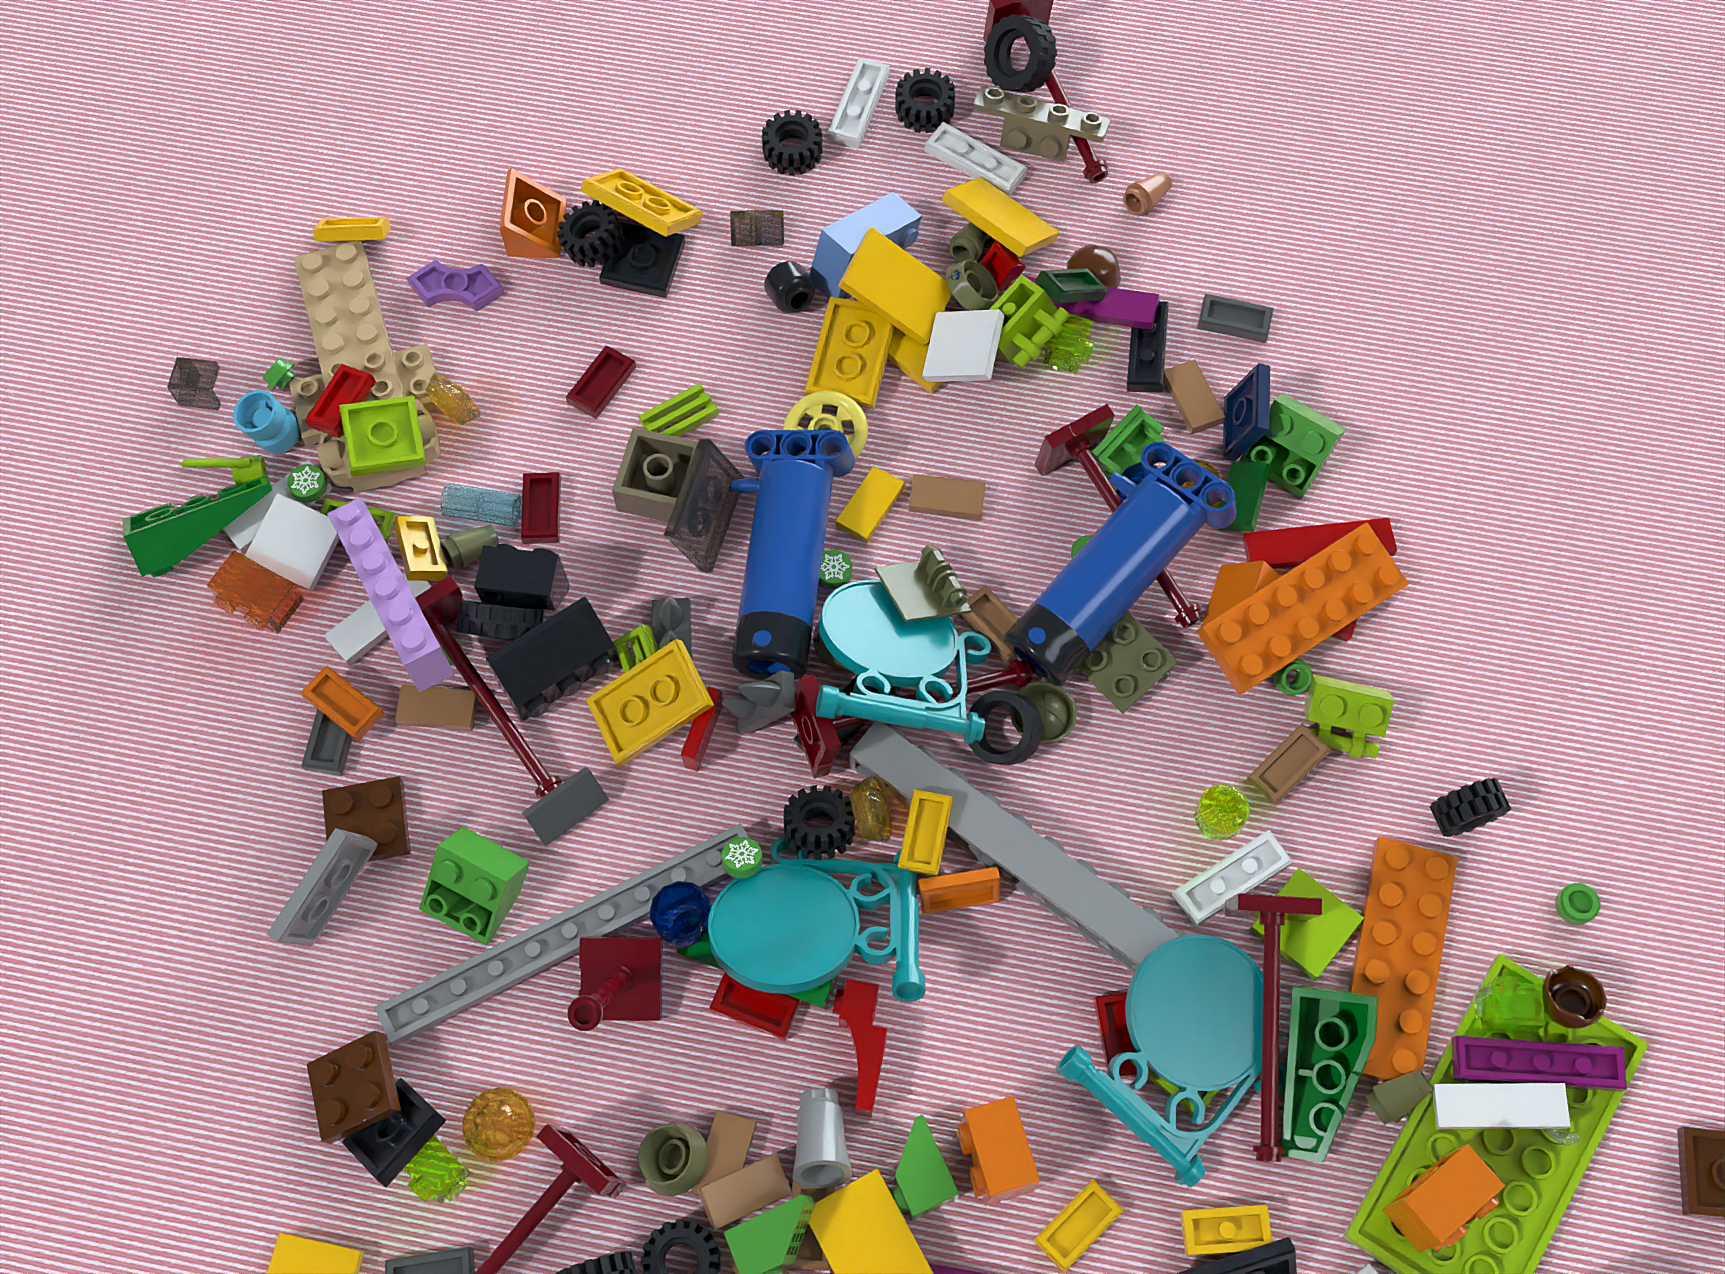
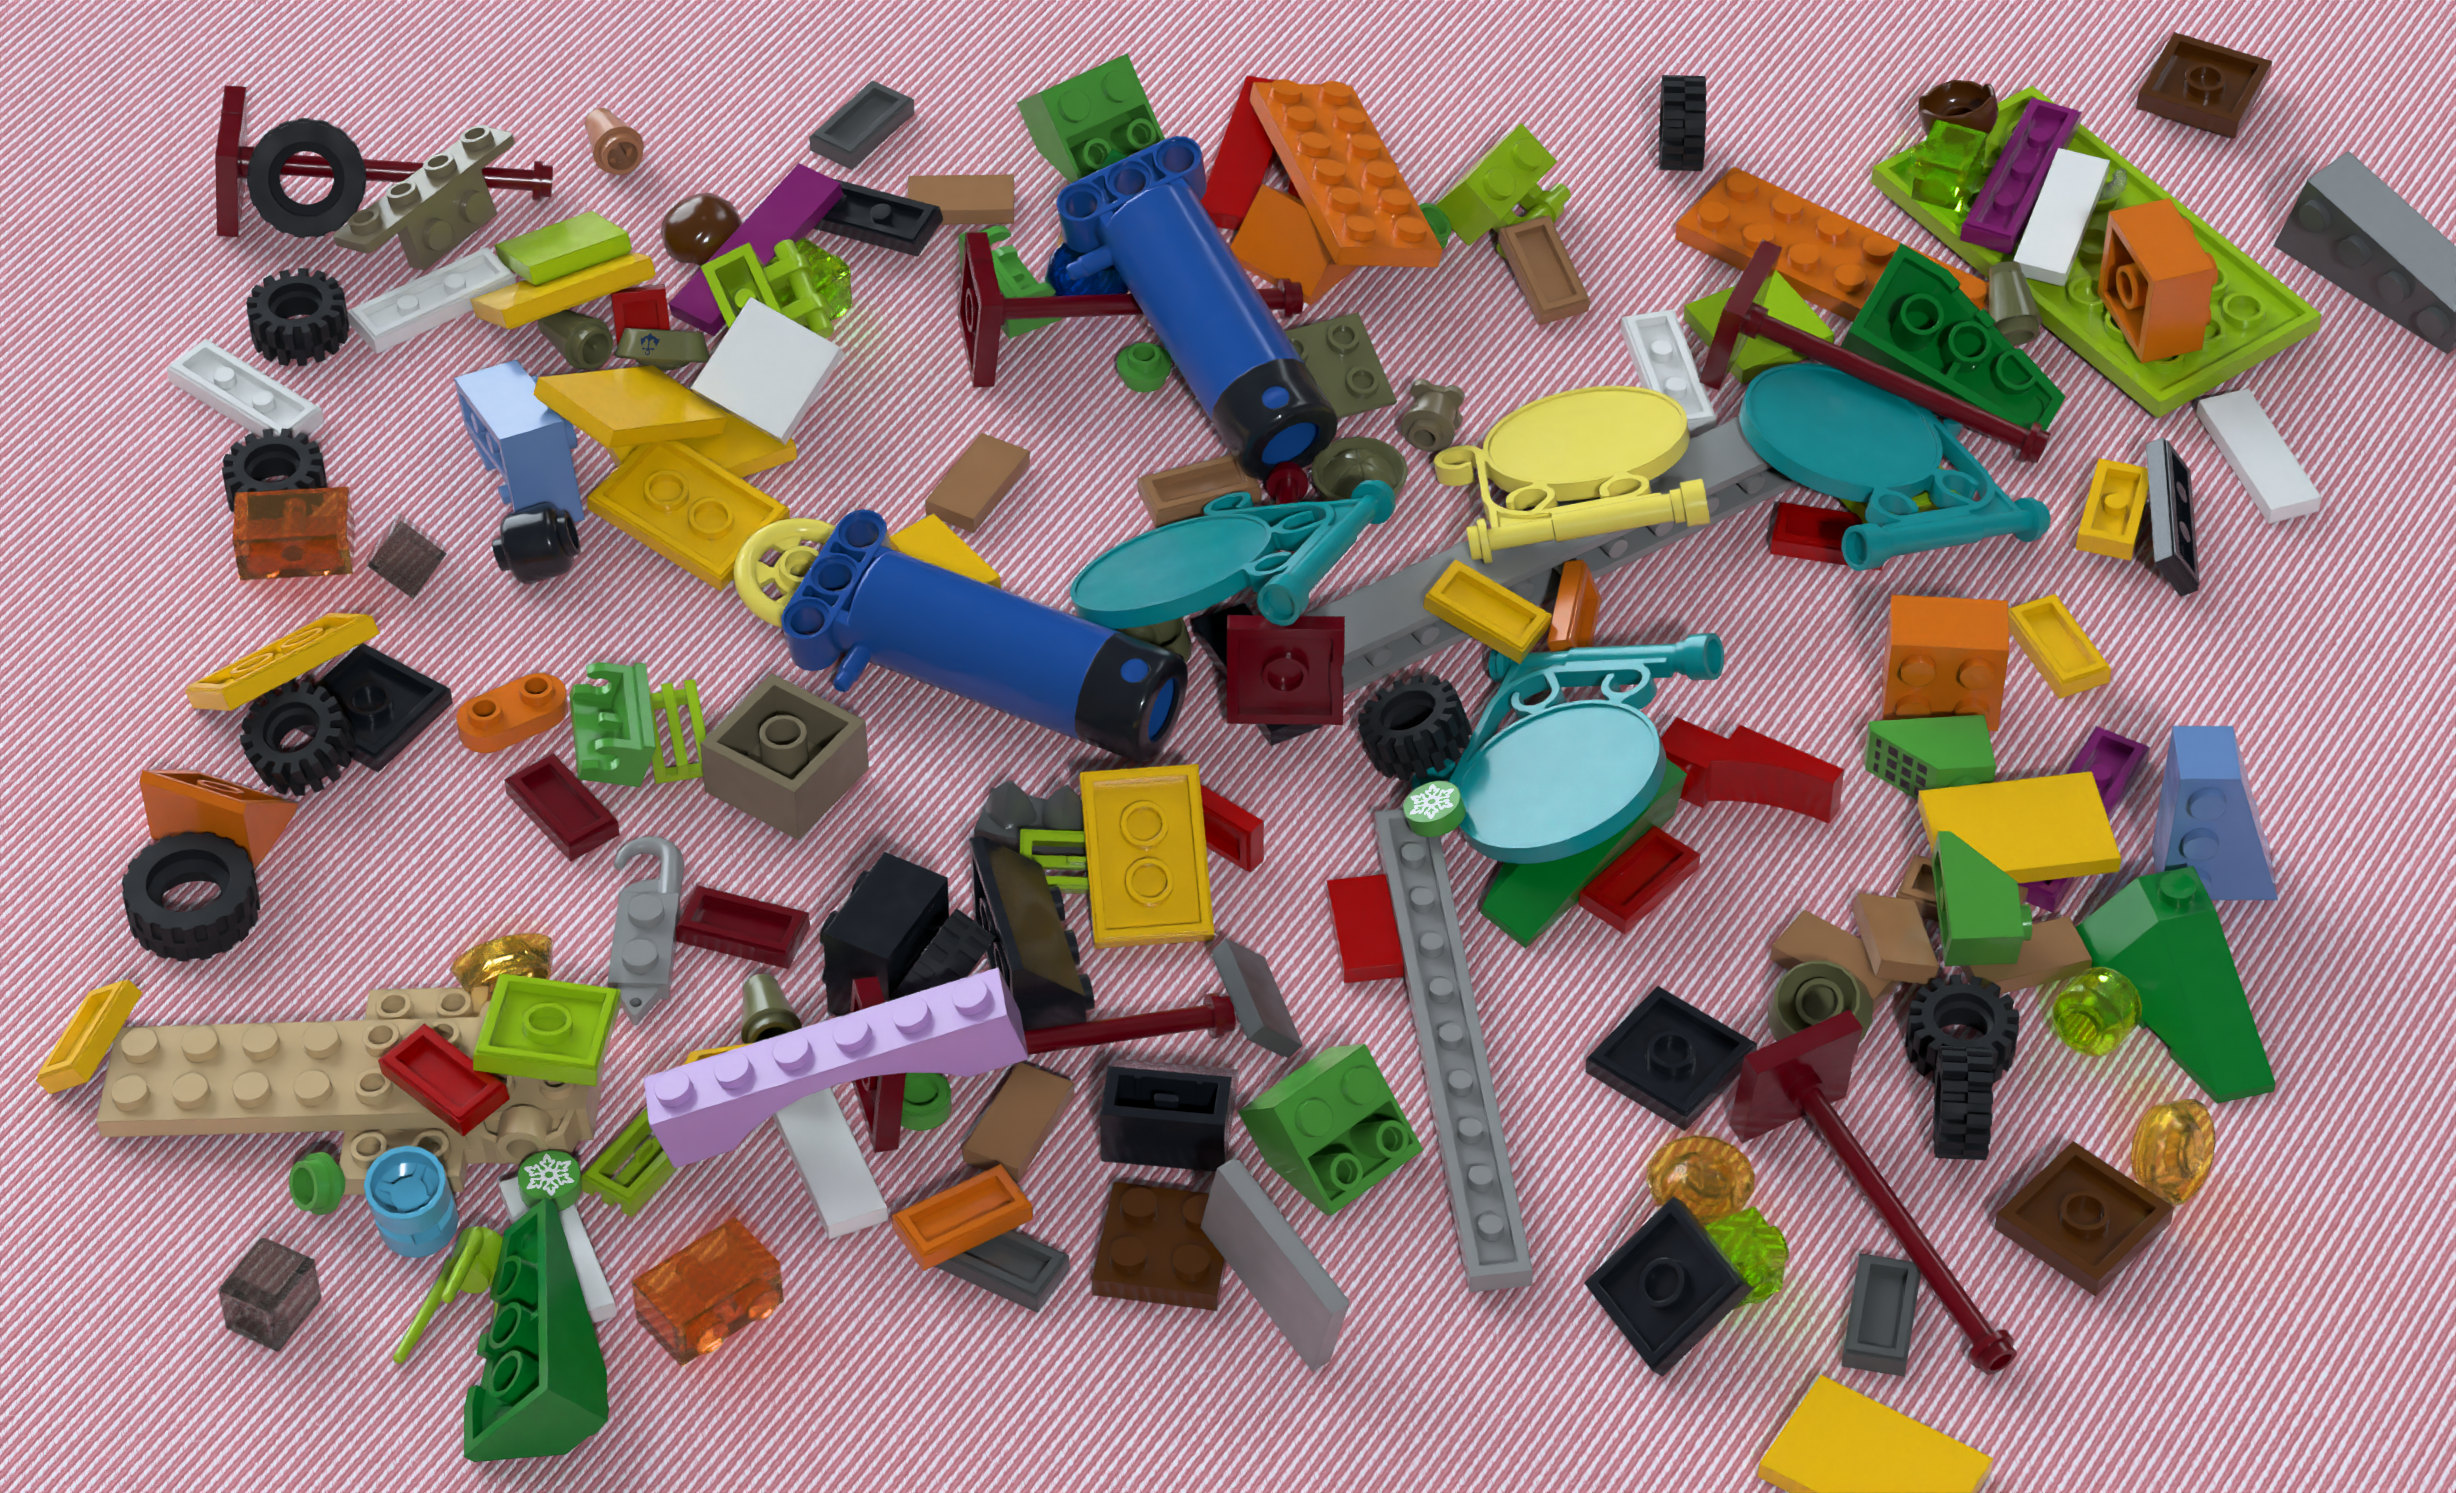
camera: 70 degrees left, 20 degrees down
(294, 542) = (638, 1215): white tile -> none
(353, 1087) = (1581, 1323): reddish brown plate -> none
(458, 211) = (199, 931): none -> black tyre
(459, 785) = (1167, 1114): none -> black slope
(470, 286) = (261, 956): medium lavender tile -> none
(480, 504) = (704, 986): clear light blue axle -> none
(531, 455) = (646, 929): none -> light grey plate
(607, 1075) = (1670, 1058): none -> black tile
(618, 981) = (1552, 991): dark red tile -> none
(652, 847) = (1365, 928): none -> red tile
(660, 381) = (613, 725): none -> bright green hinge
(661, 327) = (512, 713): none -> orange plate
(680, 913) = (1490, 890): clear blue hair -> none
(704, 506) = (883, 720): clear smoke tile -> none
(750, 168) = (293, 533): none -> clear orange brick
(762, 701) = (1213, 725): dark grey tile -> none
(821, 1141) = (1859, 835): light grey plant -> none
(871, 810) = (1423, 655): clear yellow hat -> none
(924, 587) = (1136, 528): olive hinge -> none
(1031, 731) = (1396, 471): black tyre -> none
(1036, 203) = (564, 248): none -> lime tile
(1071, 285) = (743, 227): dark green tile -> none
(1106, 843) = (1577, 449): none -> light yellow piece
(1111, 740) = (1433, 416): none -> dark tan brick
(1221, 812) = (1583, 340): clear neon green head -> none
(1246, 412) = (1032, 135): dark blue plate -> none
(1577, 904) = (1835, 94): bright green tile -> none

